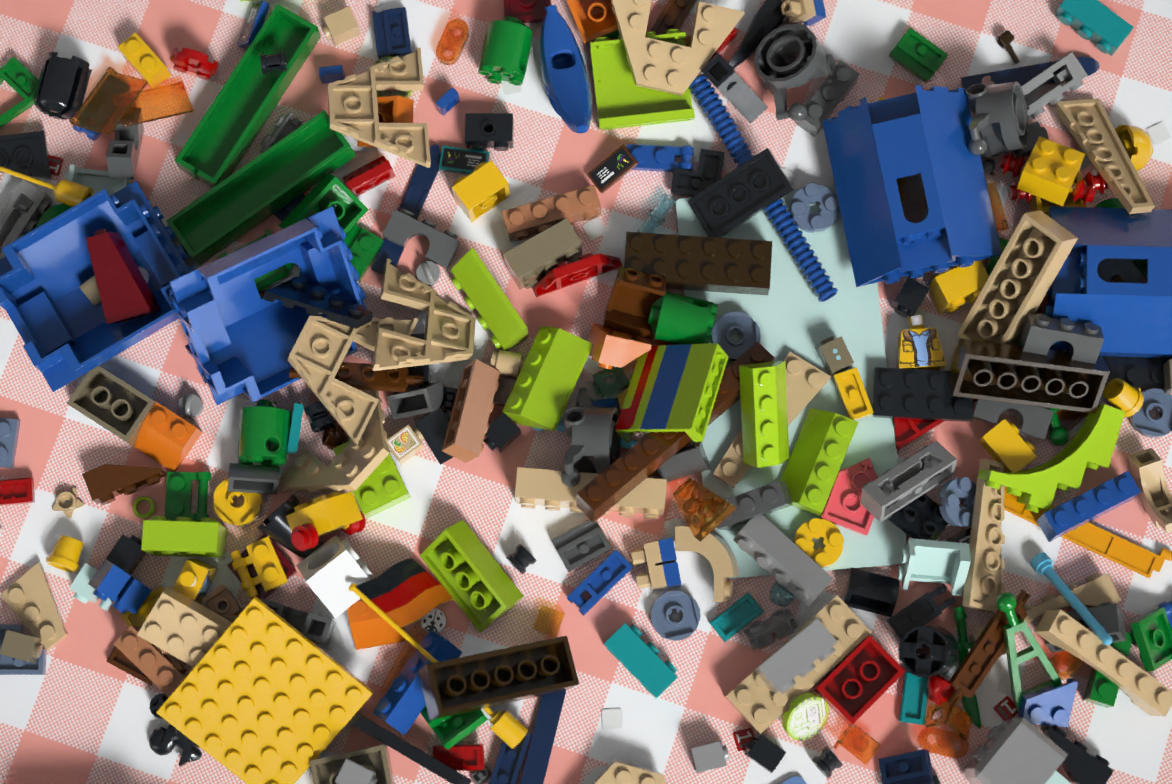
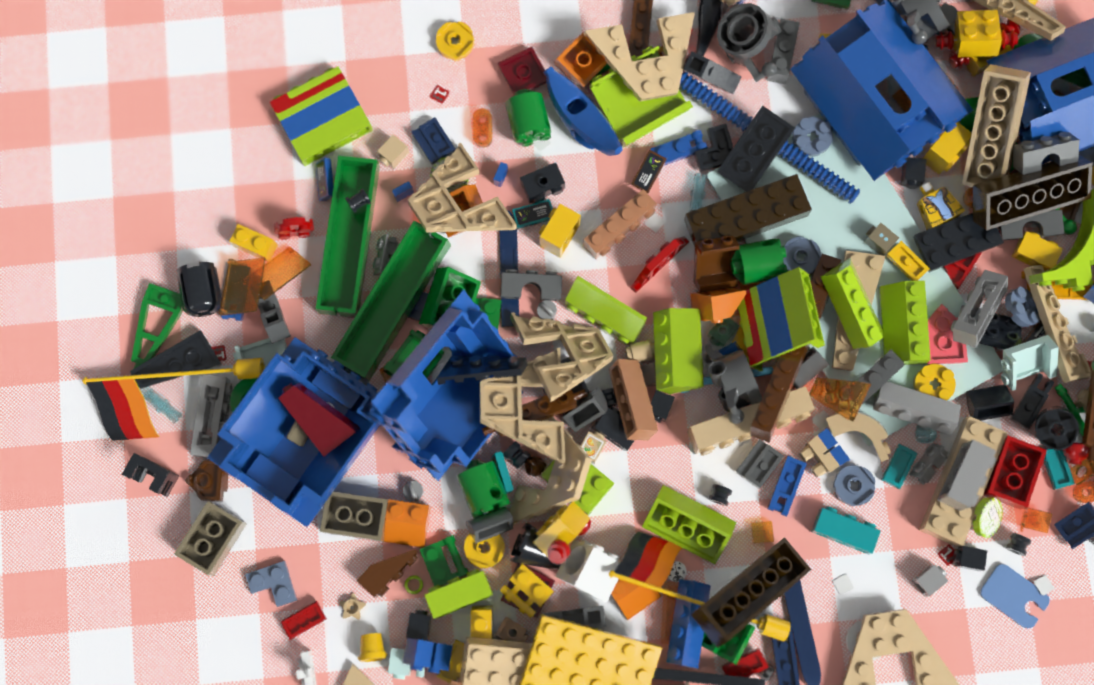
camera: 25 degrees left, 0 degrees up
(369, 176) = (468, 255): red bracket -> none
(542, 254) = (630, 258): dark tan brick -> none

